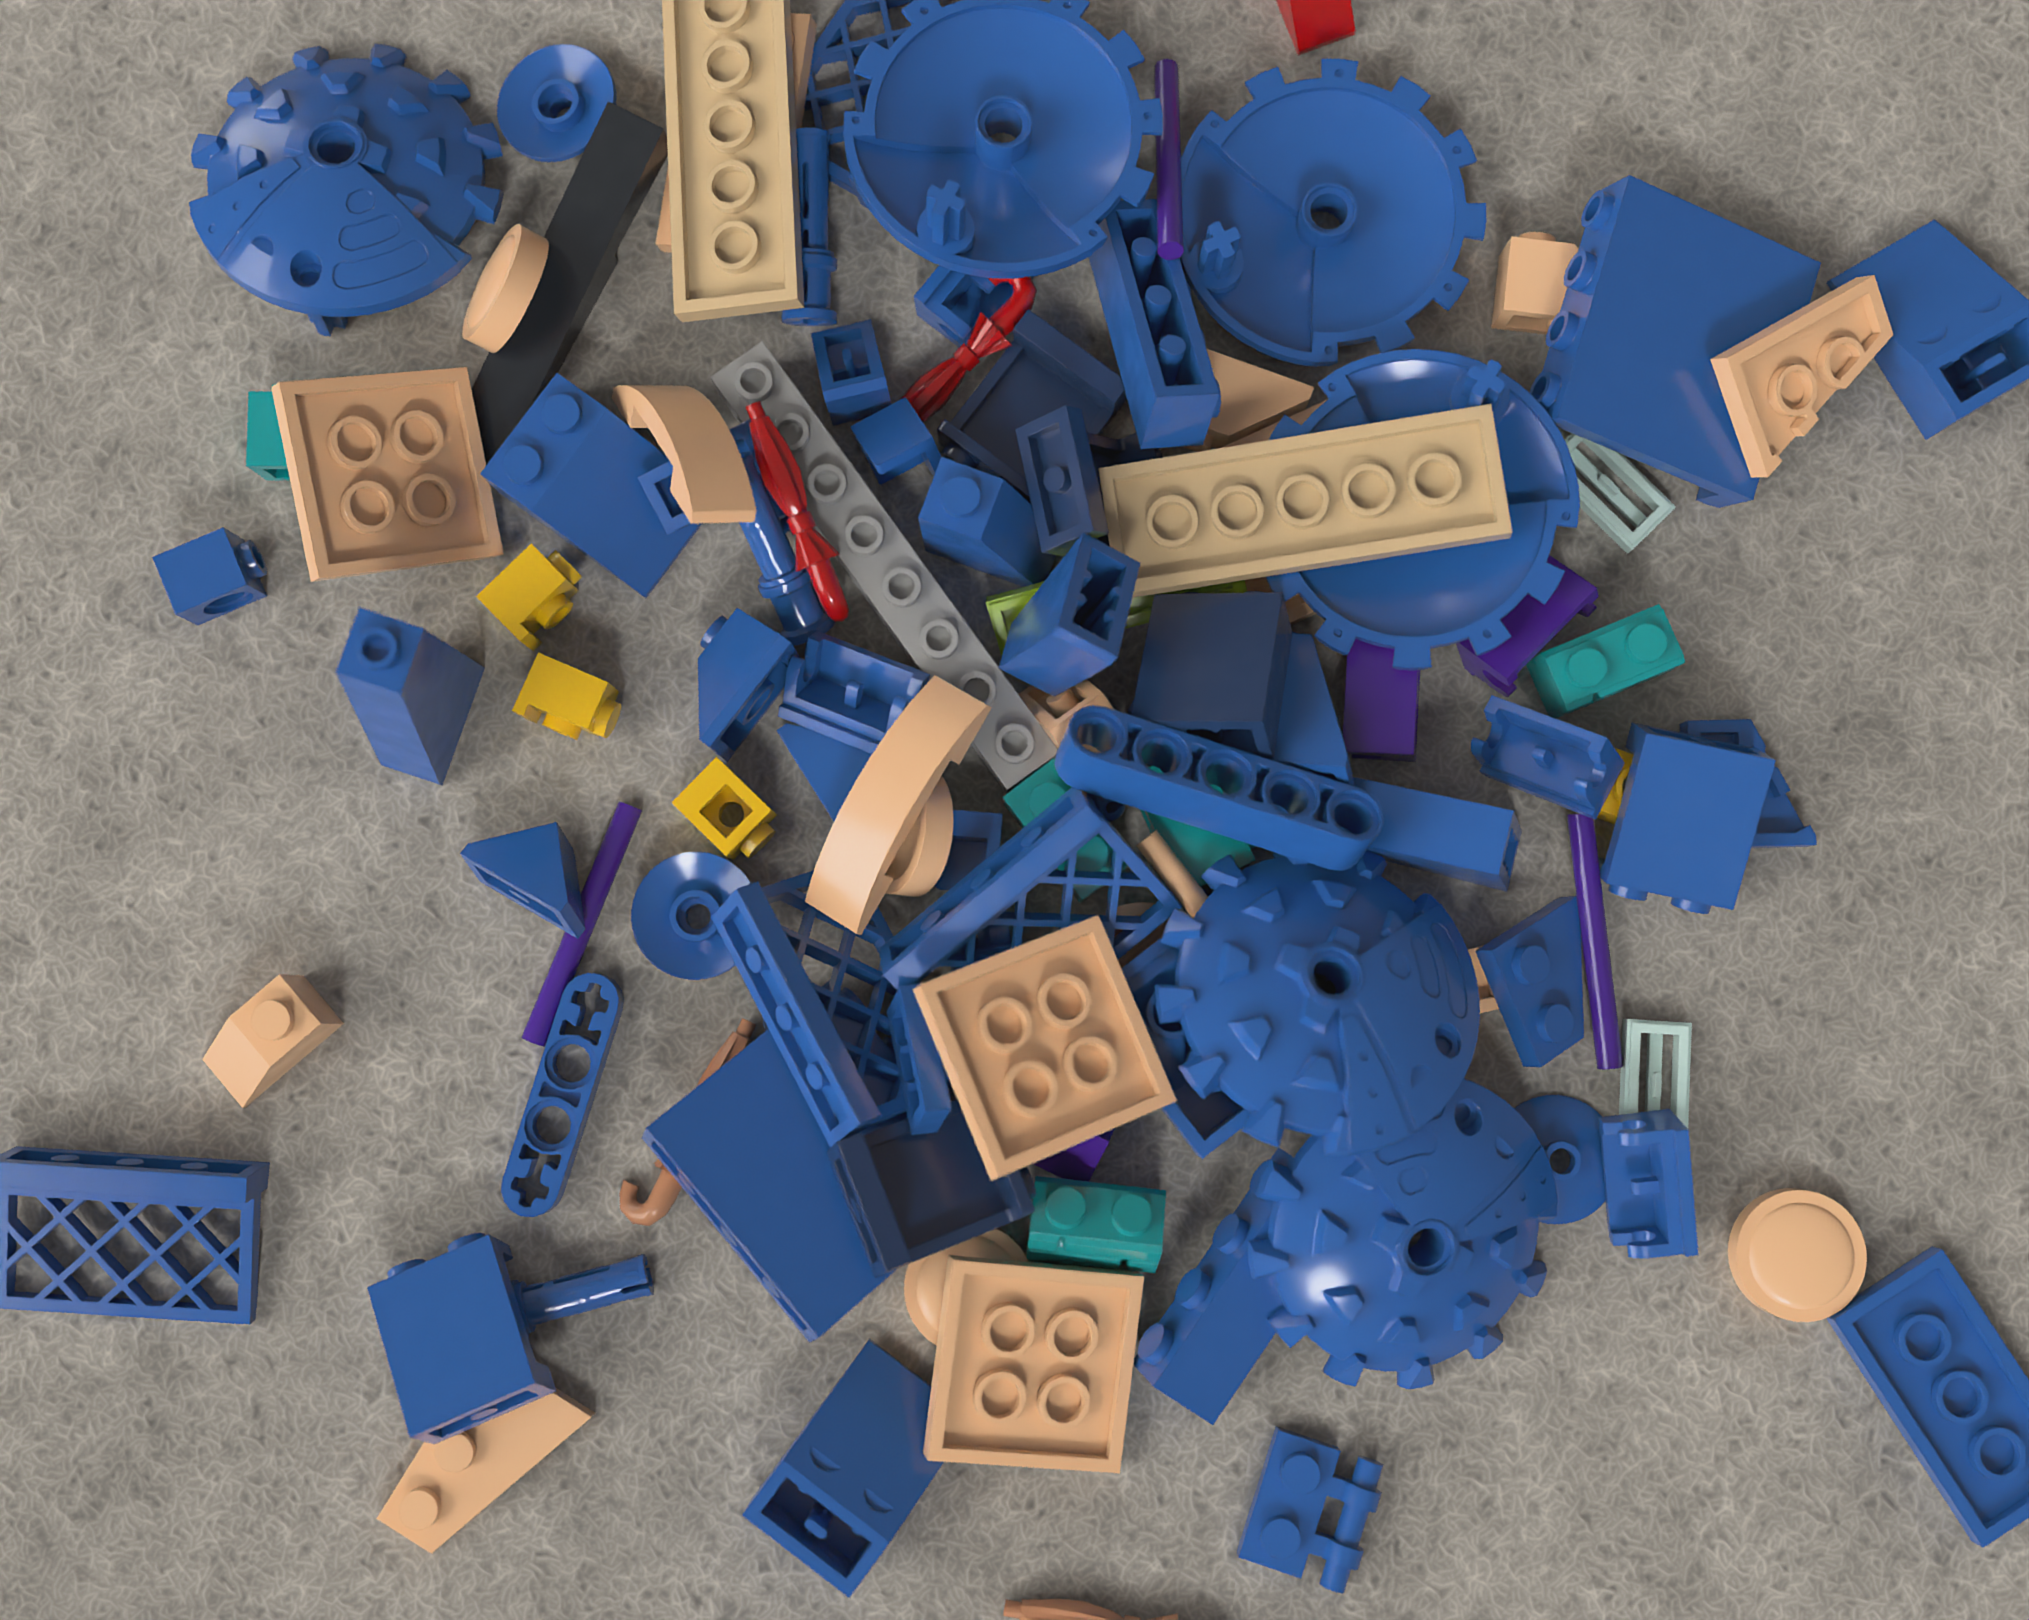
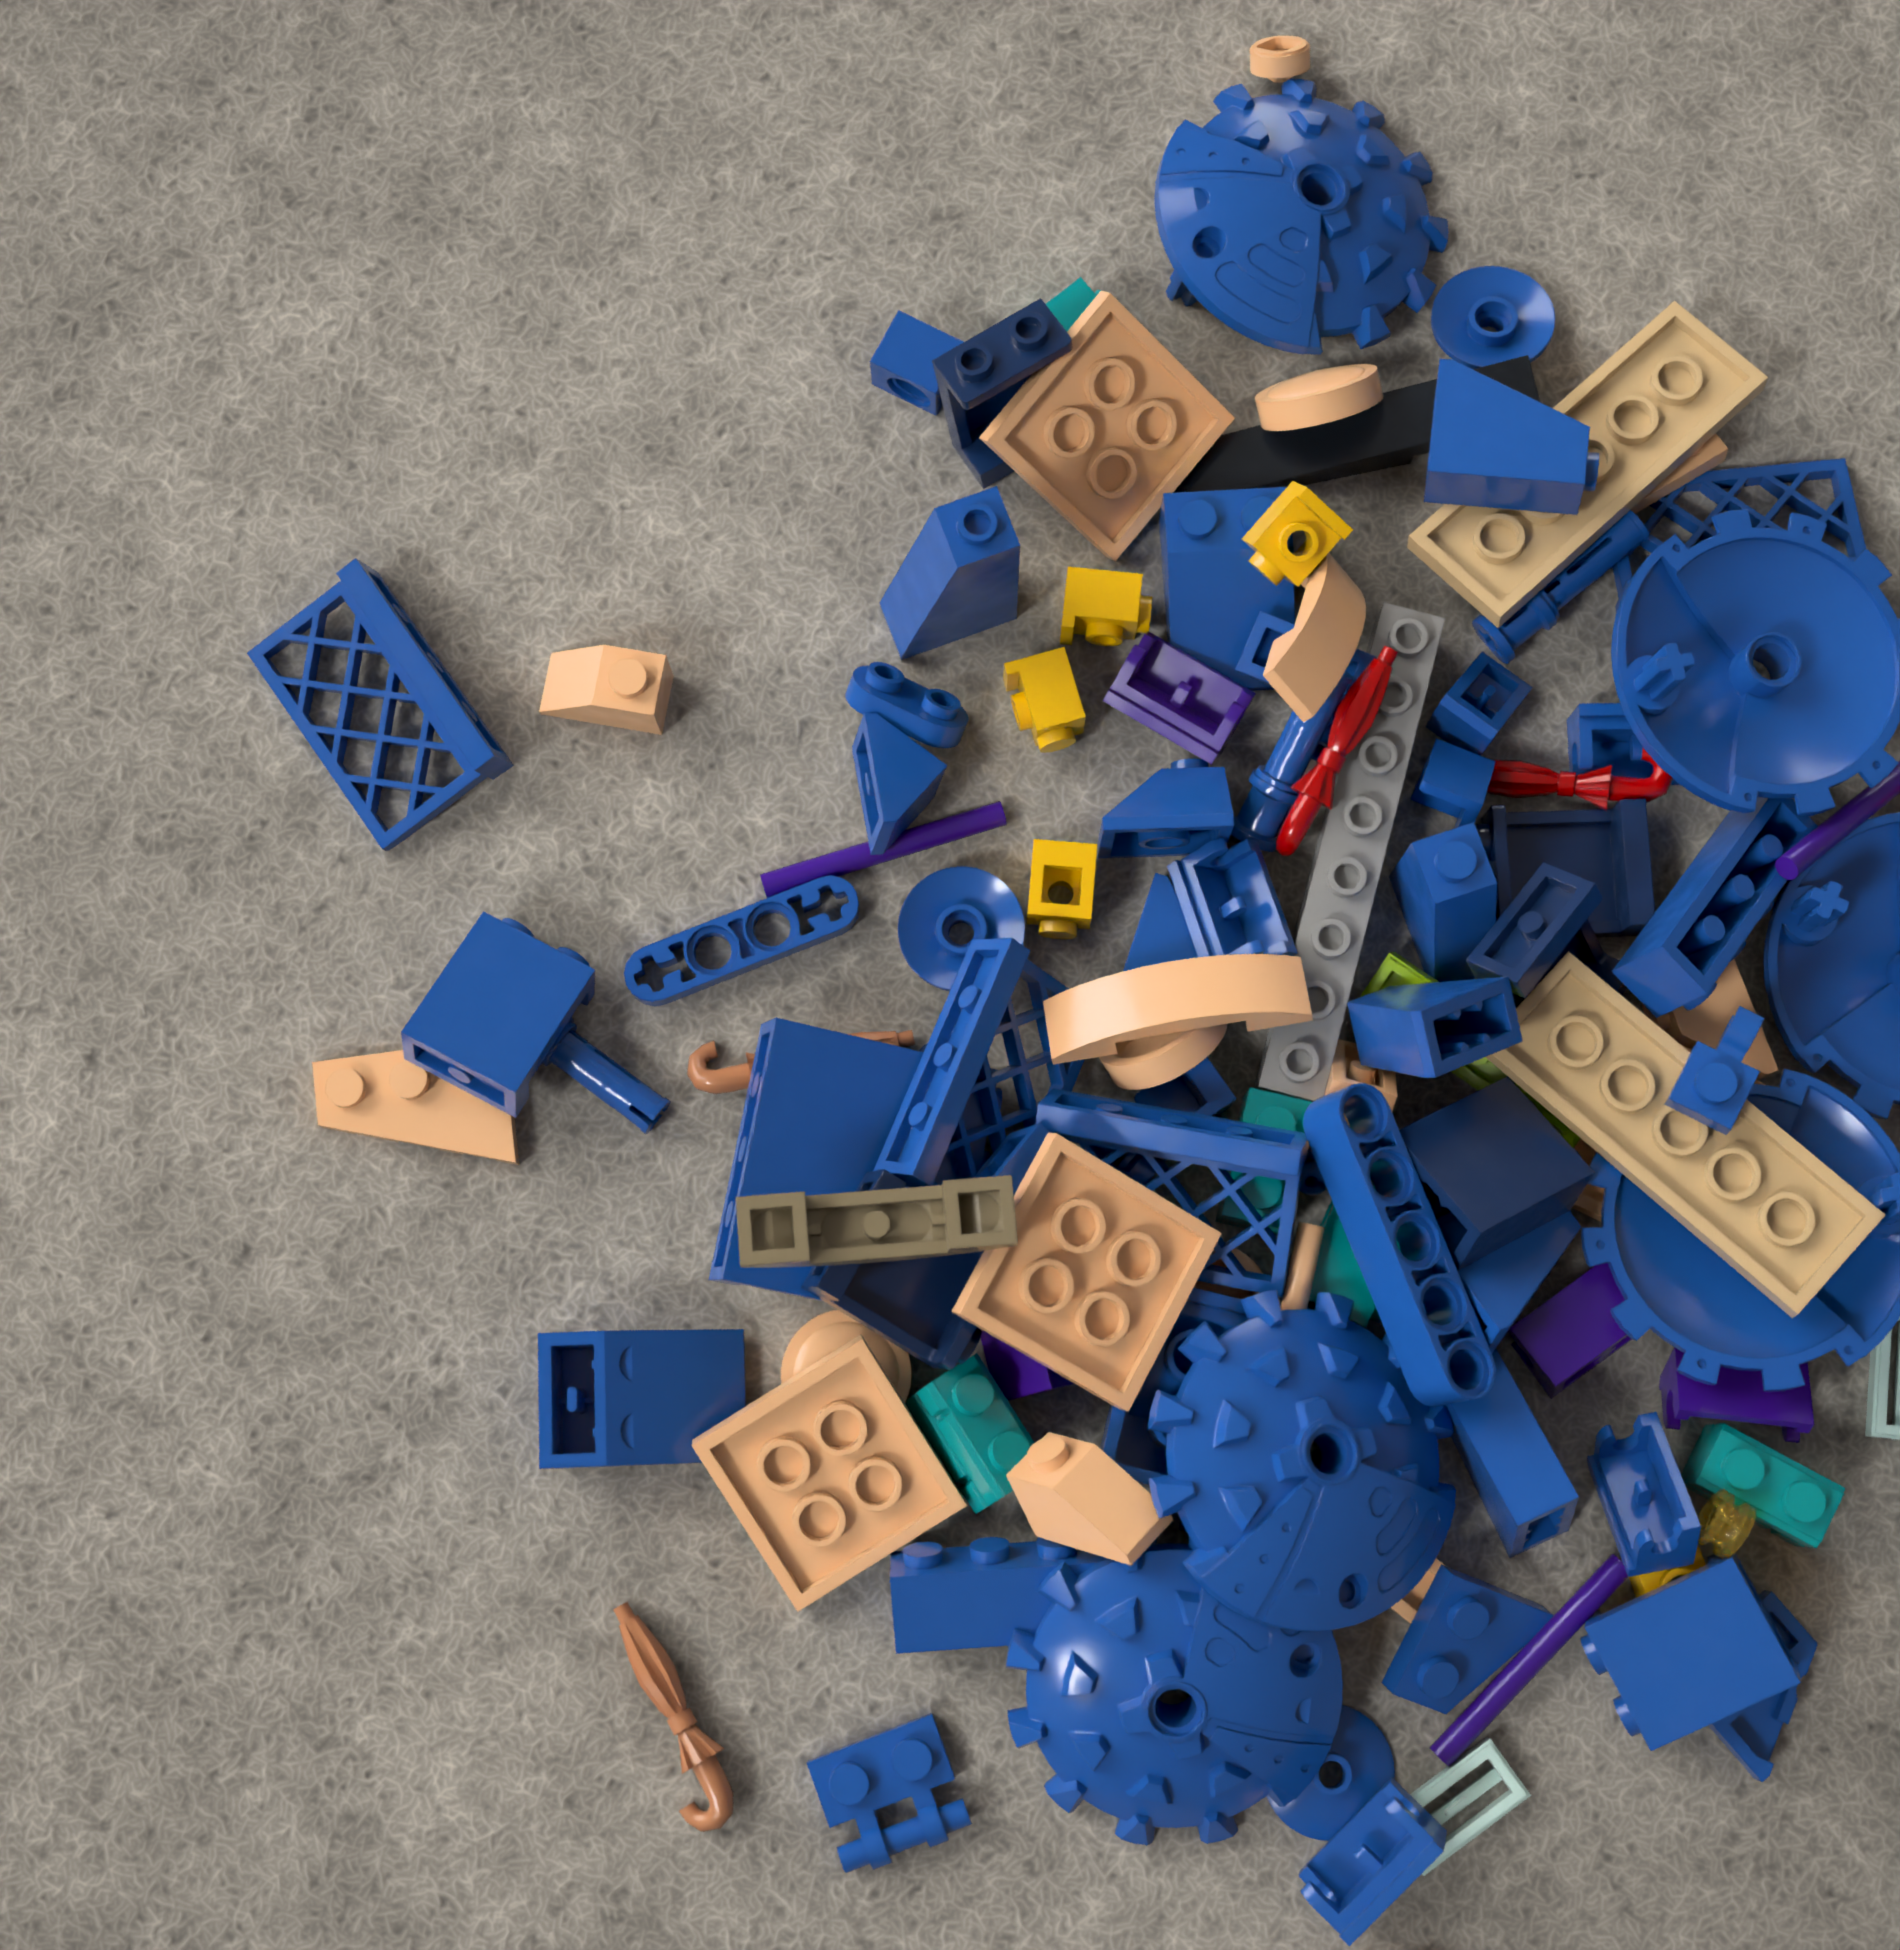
camera: 50 degrees right, 5 degrees down
(204, 86) = (1280, 58): none -> light nougat tile
(262, 530) = (985, 375): none -> dark blue panel
(484, 812) = (918, 712): none -> blue plate
(579, 387) = (1293, 511): none -> yellow brick
(653, 595) = (1179, 697): none -> dark purple hinge
(666, 182) = (1504, 448): none -> blue slope
(874, 1189) = (876, 1224): none -> dark tan slope
(1216, 1188) = (1085, 1499): none -> light nougat slope
(1288, 442) = (1715, 1080): none -> blue plate
(1616, 715) = (1725, 1523): none -> clear yellow bush

